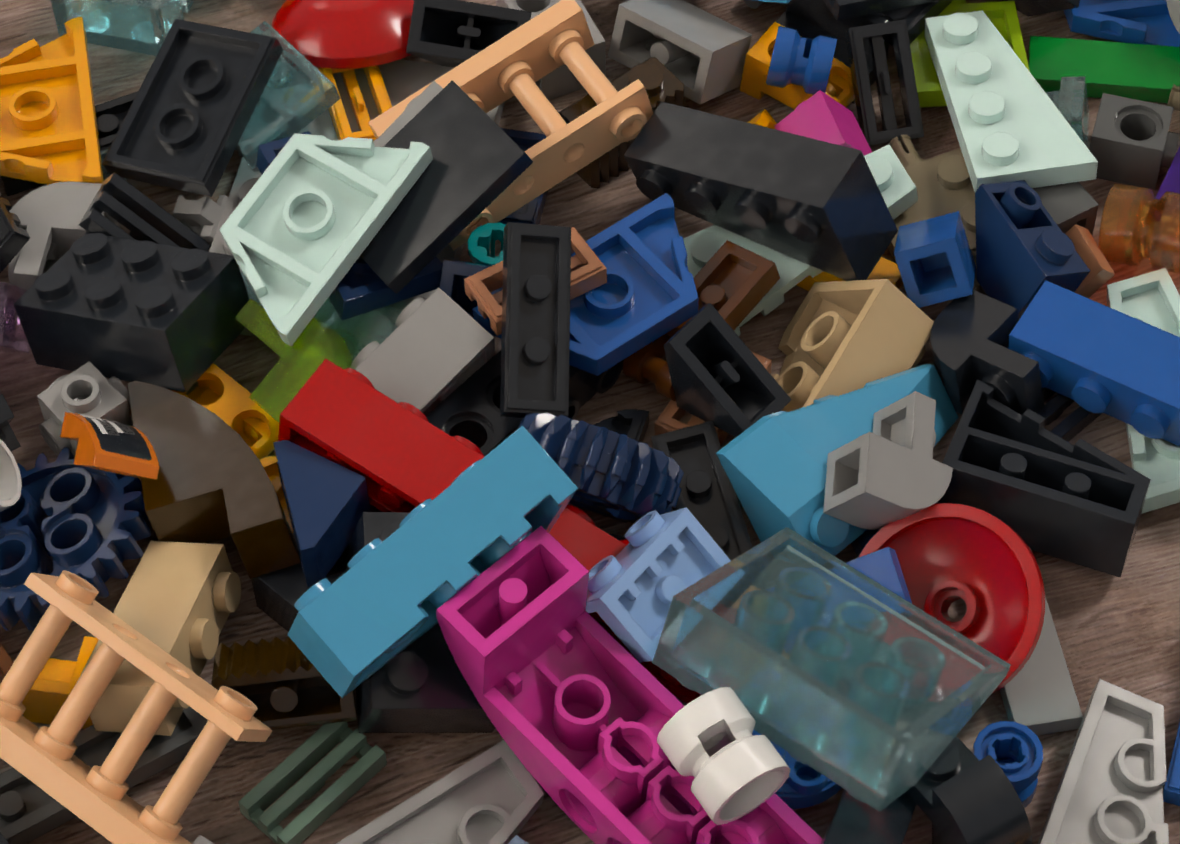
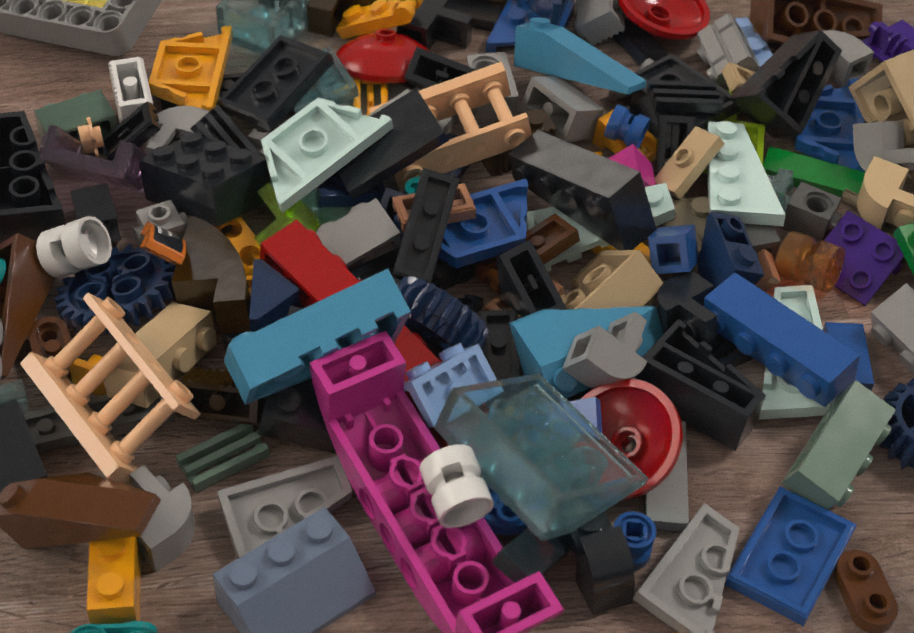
camera: 10 degrees right, 5 degrees down
(915, 98) = (689, 161): none -> tan plate

